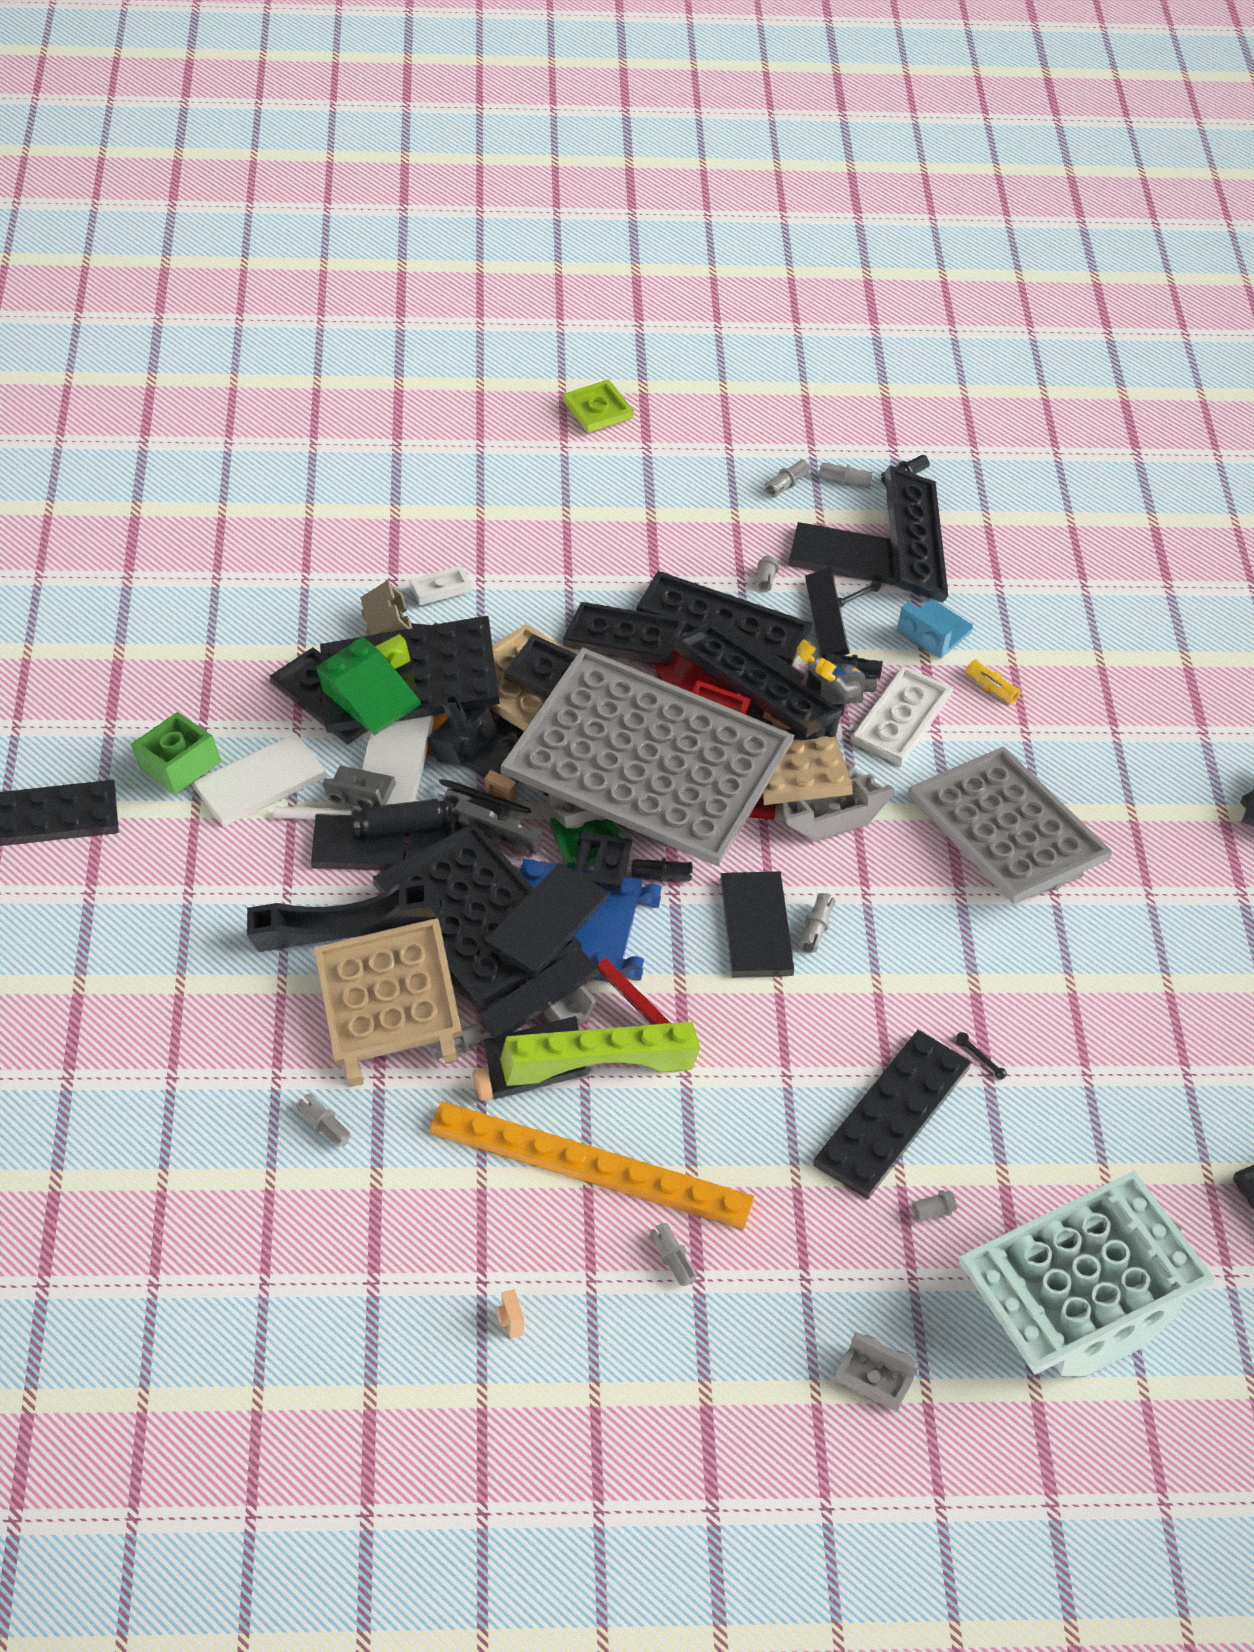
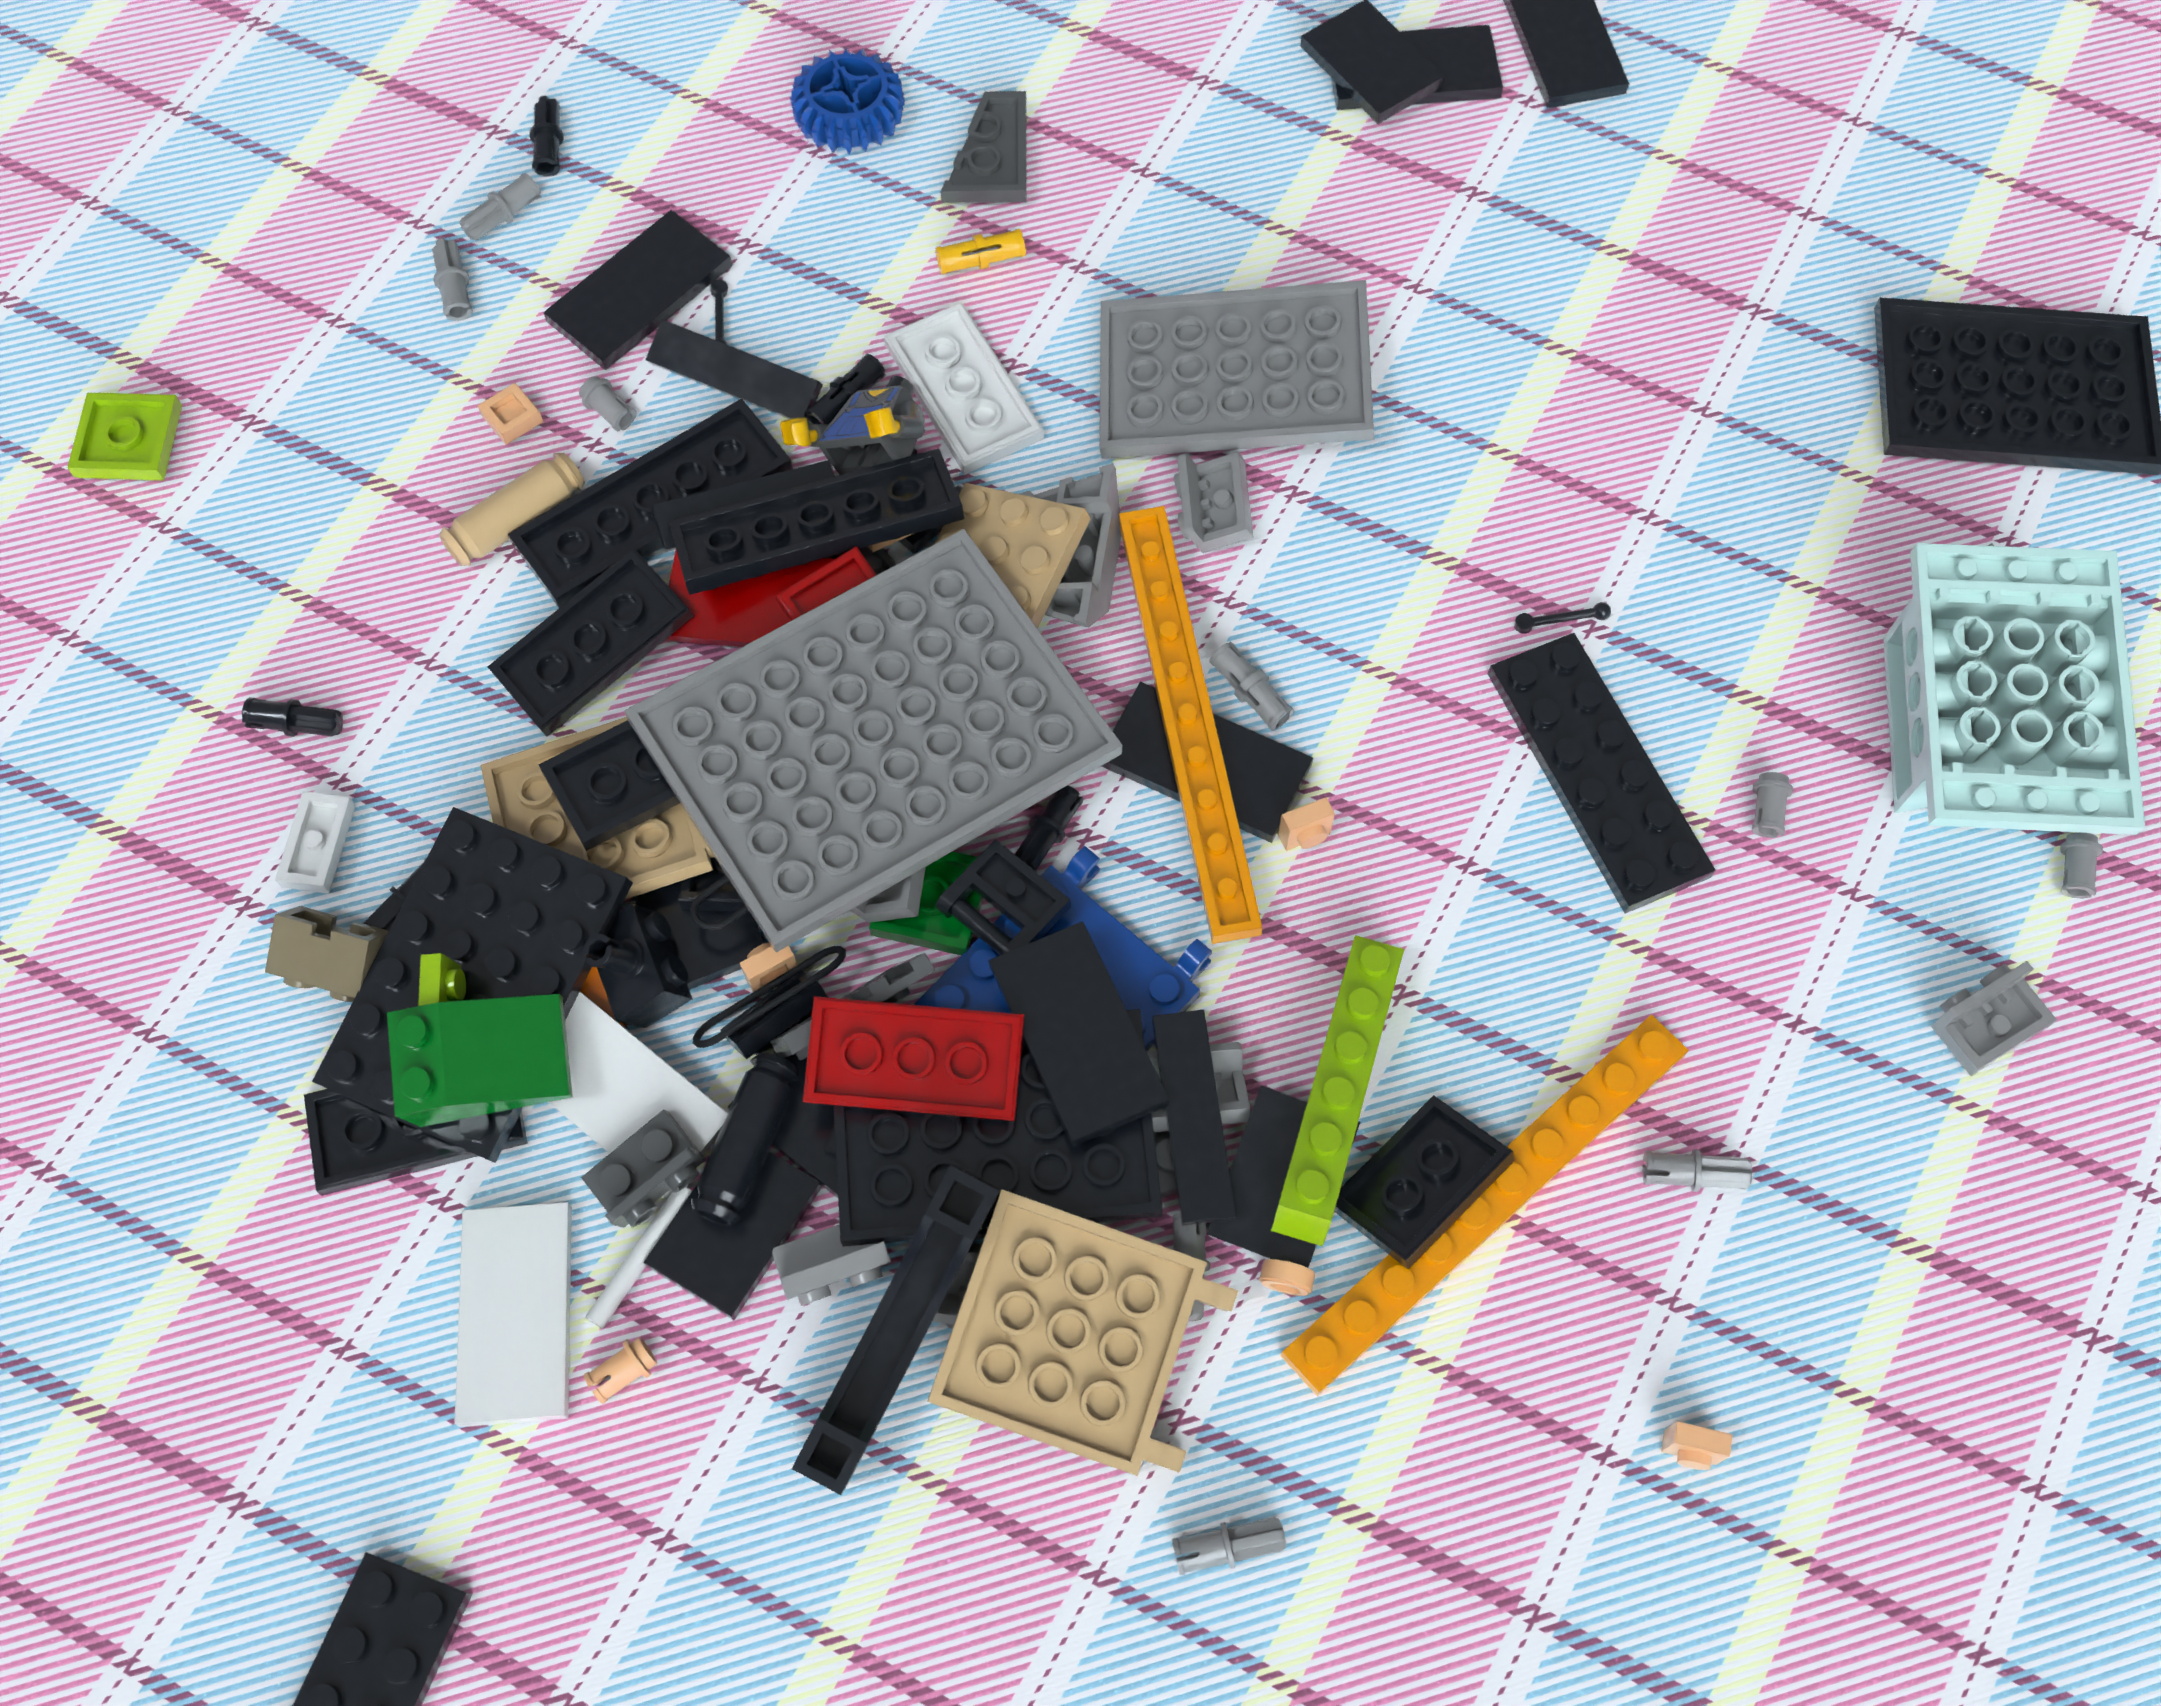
camera: 55 degrees left, 15 degrees up
(176, 752) = (390, 1424): bright green brick -> none
(257, 831) = (623, 1367): none -> light nougat pin
(355, 879) = (819, 1260): none -> light grey bracket
(484, 856) = (914, 1058): none -> red tile
(498, 543) = (291, 717): none -> black axle
(577, 1122) = (1422, 1181): none -> black tile
(631, 993) = (1260, 987): red tile -> none
(654, 559) = (510, 507): none -> tan axle
(728, 538) = (510, 413): none -> light nougat plate
(749, 982) = (1306, 825): none -> light nougat plate
(767, 898) = (1190, 727): none -> light orange plate
(916, 534) = (674, 187): black plate -> none
(917, 852) = (1214, 501): none -> light grey bracket
(933, 627) = (847, 262): dark azure bracket -> none
(1025, 1386) = (2080, 864): none -> light grey pin
(1037, 578) = (847, 100): none -> blue gear
(1062, 659) = (994, 154): none -> dark grey wing

